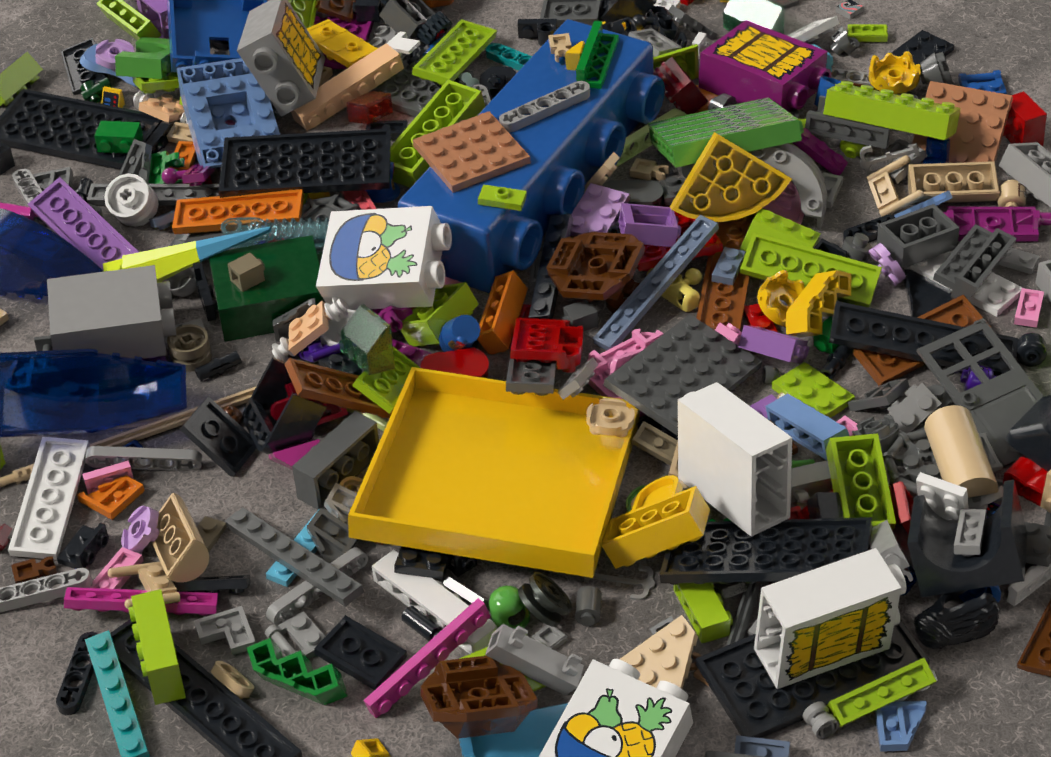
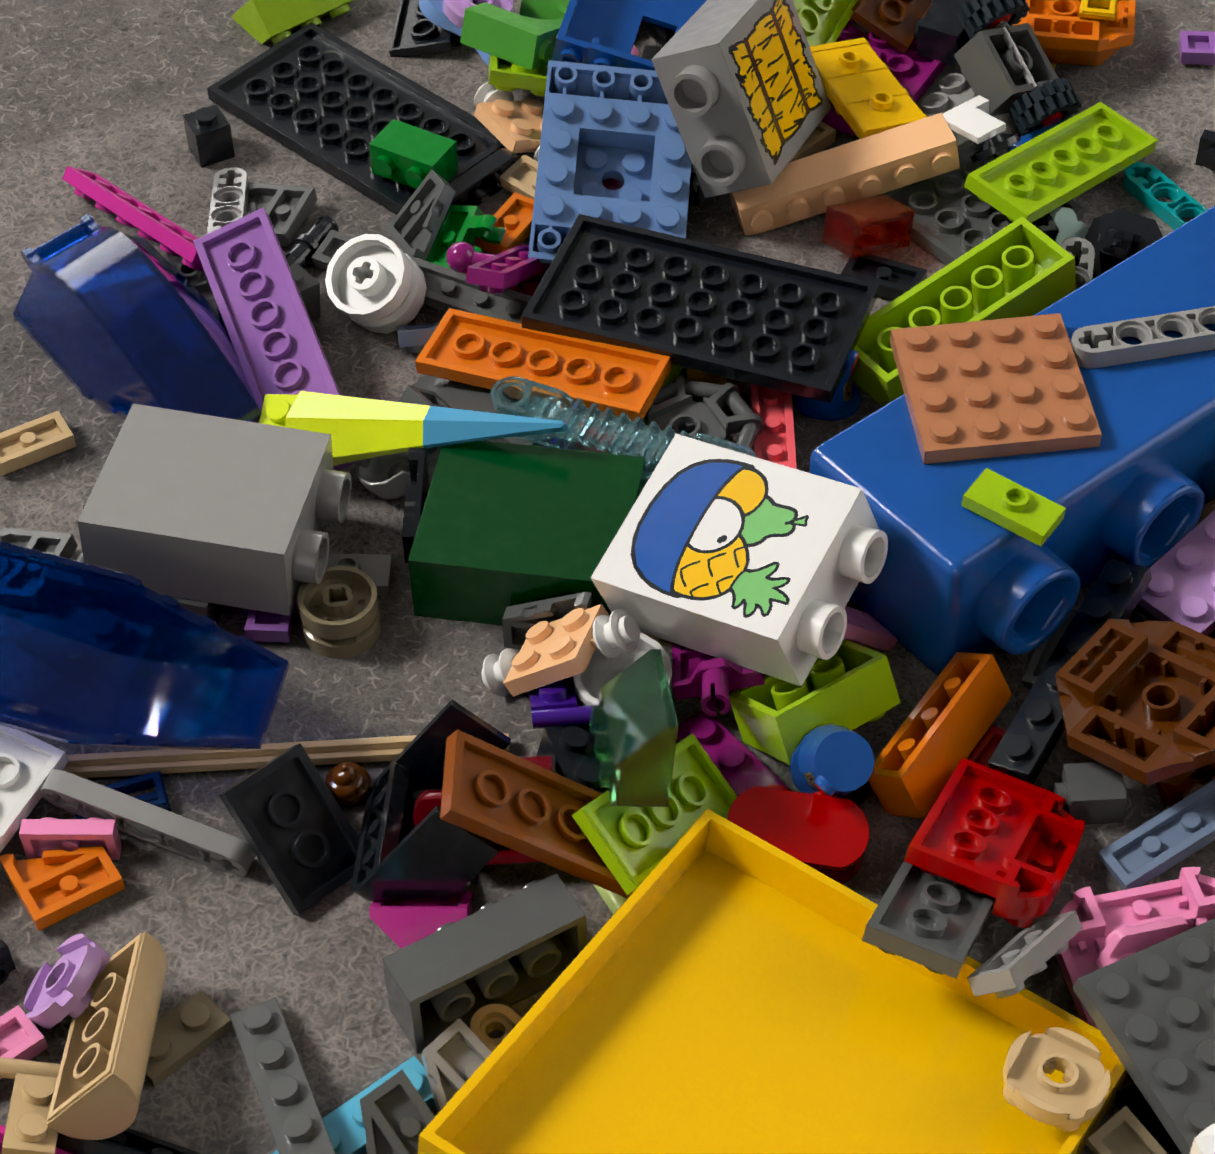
camera: 20 degrees right, 5 degrees up
(93, 92) = (421, 61): dark green plate -> none
(112, 97) = (445, 80): slope -> none
(218, 366) = (375, 665): black pin -> none
(246, 271) = (488, 500): dark tan brick -> none

